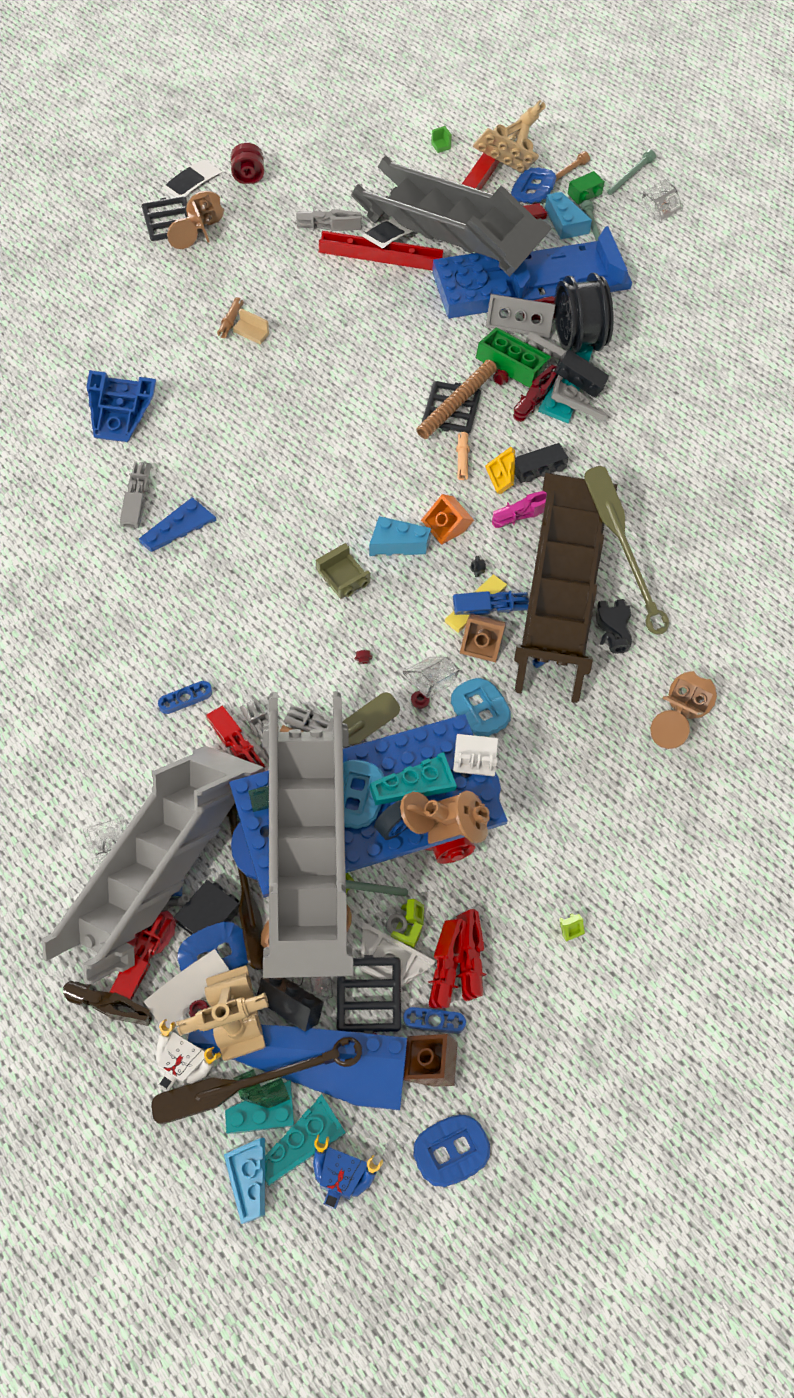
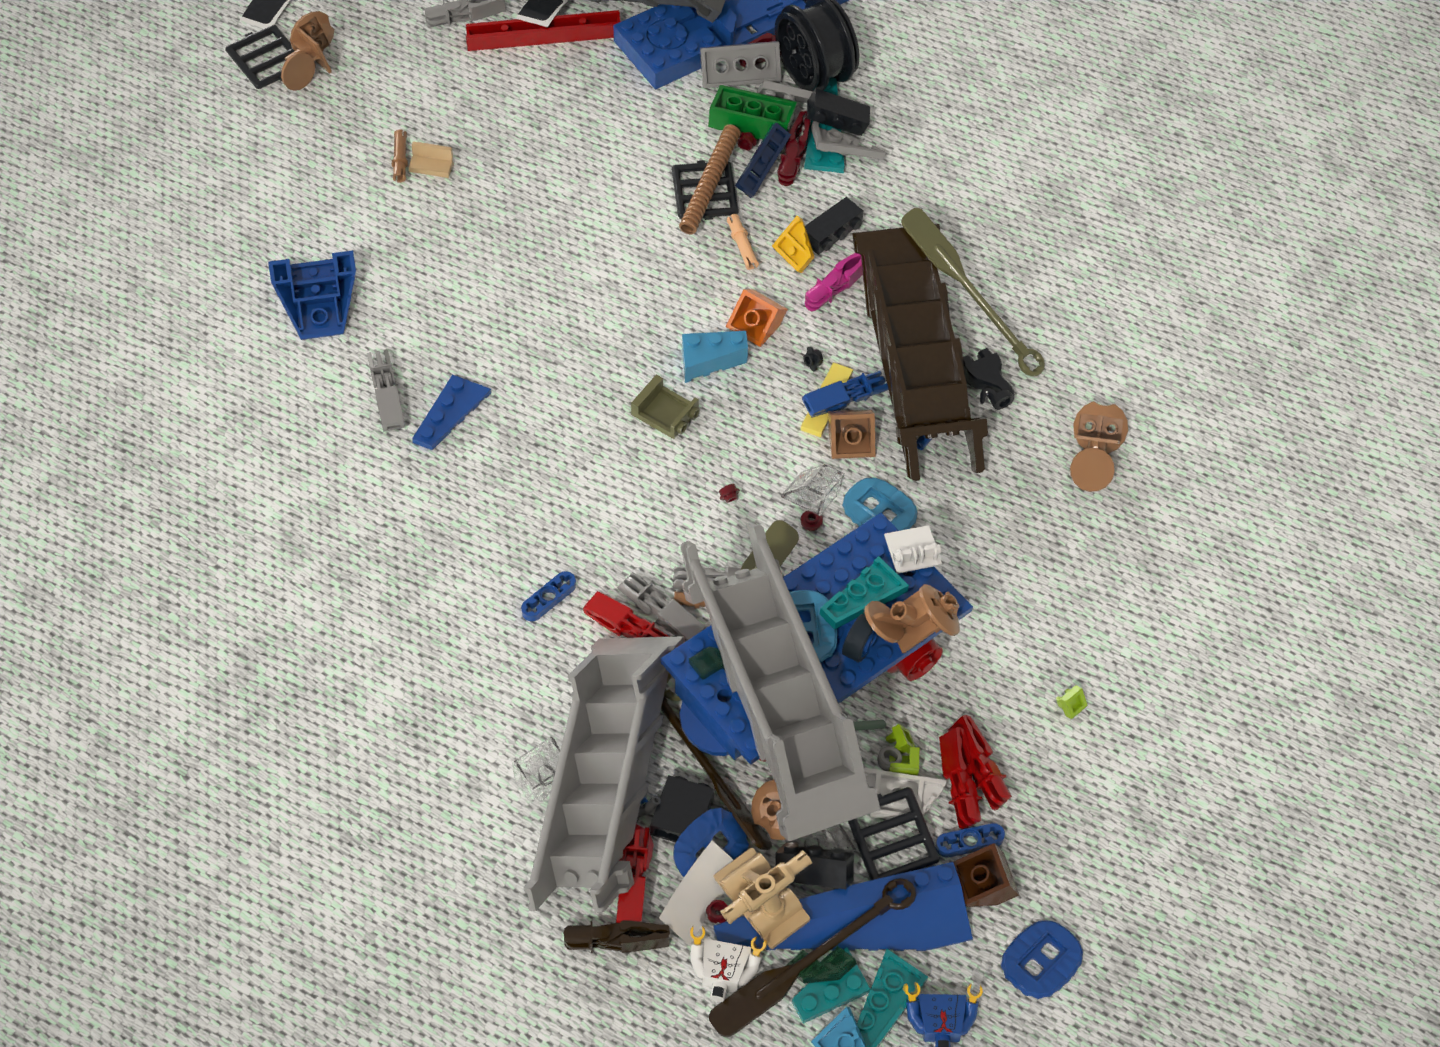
camera: 20 degrees left, 5 degrees down
(505, 395) = (763, 160): none -> dark blue hinge

